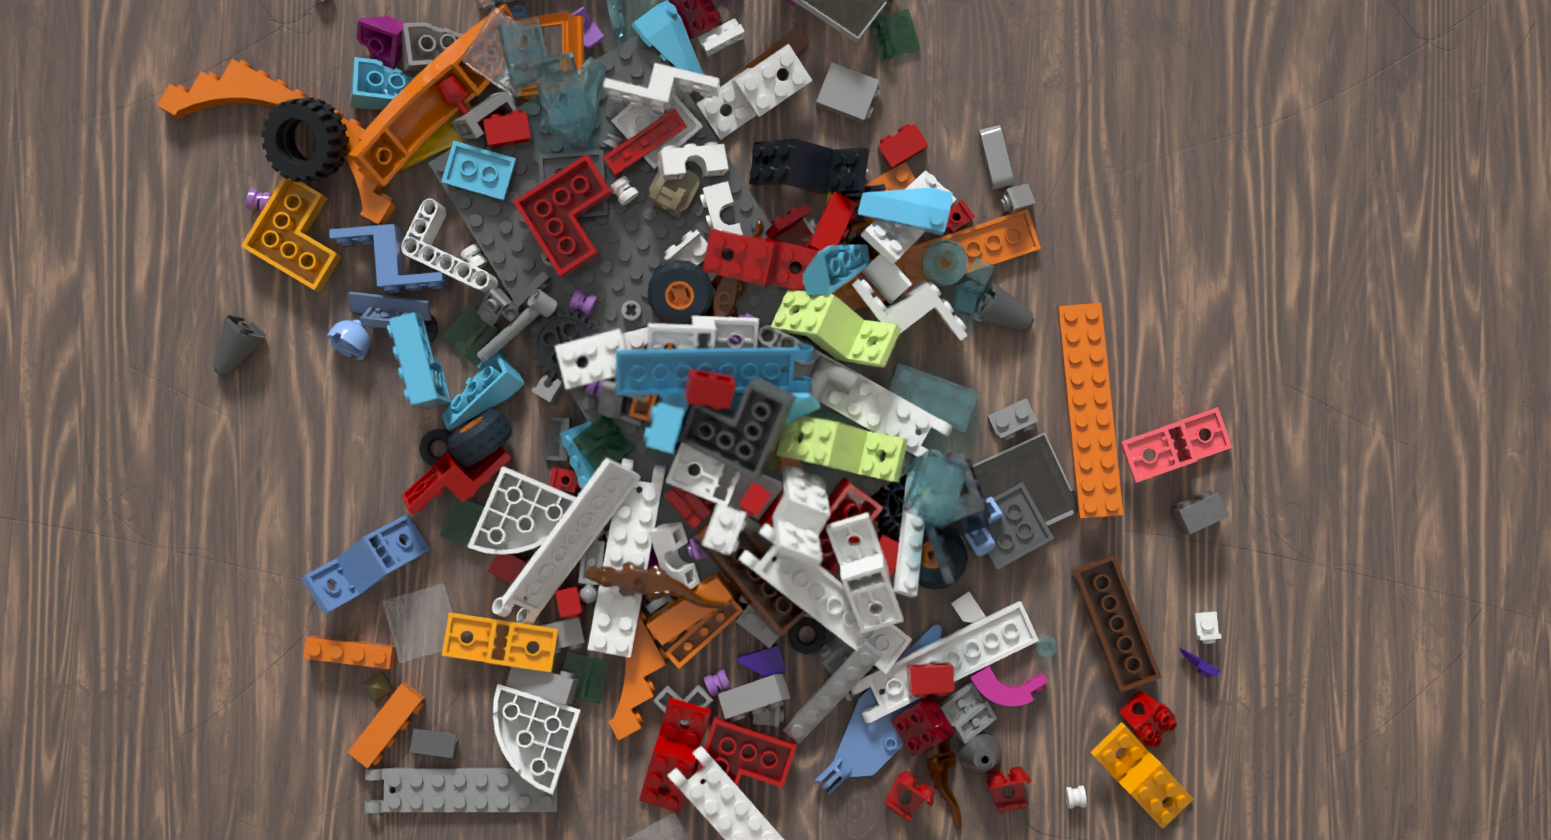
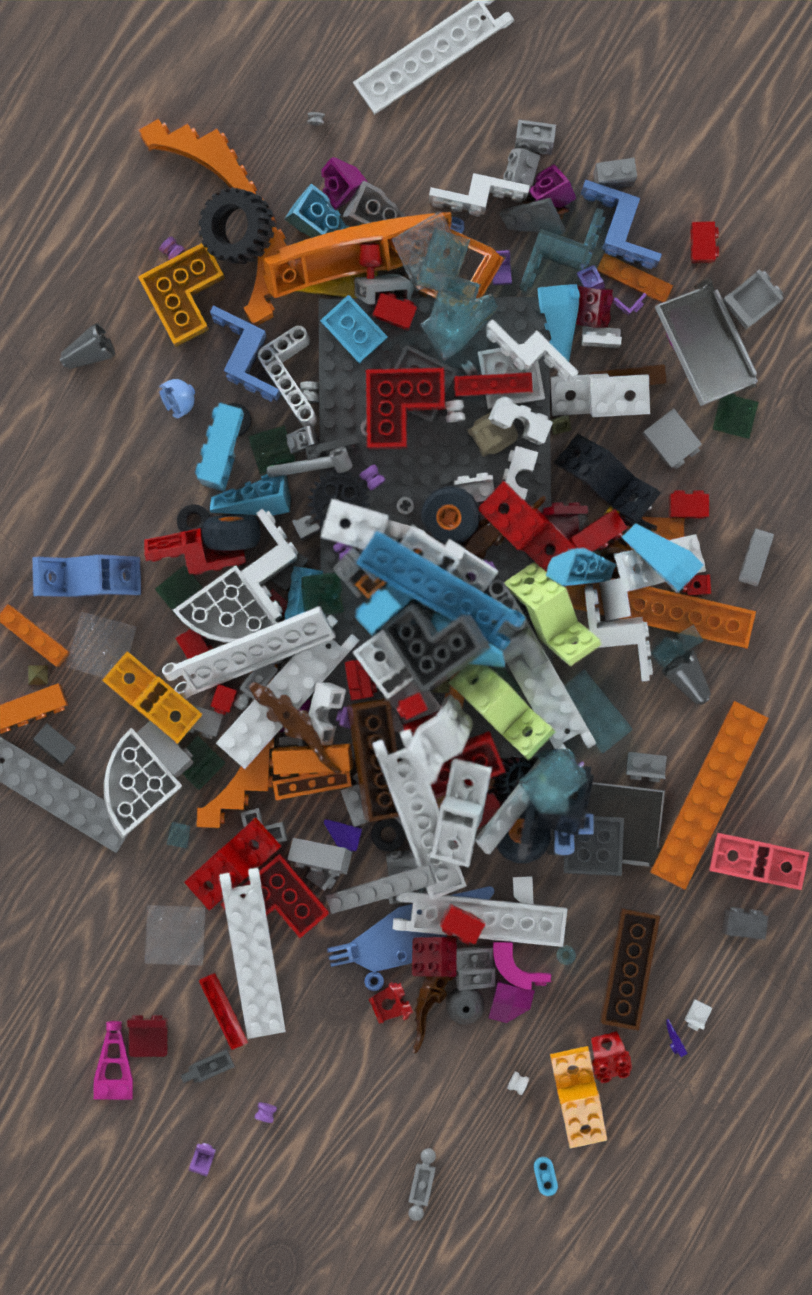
camera: 30 degrees right, 0 degrees up
(381, 308) = (216, 390): sand blue bracket -> none
(536, 446) = (270, 564): none -> white bracket
(606, 757) = (179, 835): none -> clear light blue panel
(709, 389) = (428, 602): red brick -> none
(717, 683) = (298, 829): medium lavender wheel -> none
(724, 529) = (375, 715): white bracket -> none
(734, 143) = (560, 424): none -> olive slope
(878, 790) = (369, 976): none -> medium blue plate
(954, 253) = (677, 609): clear light blue wheel -> none
(1016, 779) = (481, 1040): red piece -> none
(1017, 198) = (752, 599): light grey slope -> none
(1020, 724) = (510, 1002): none -> magenta slope

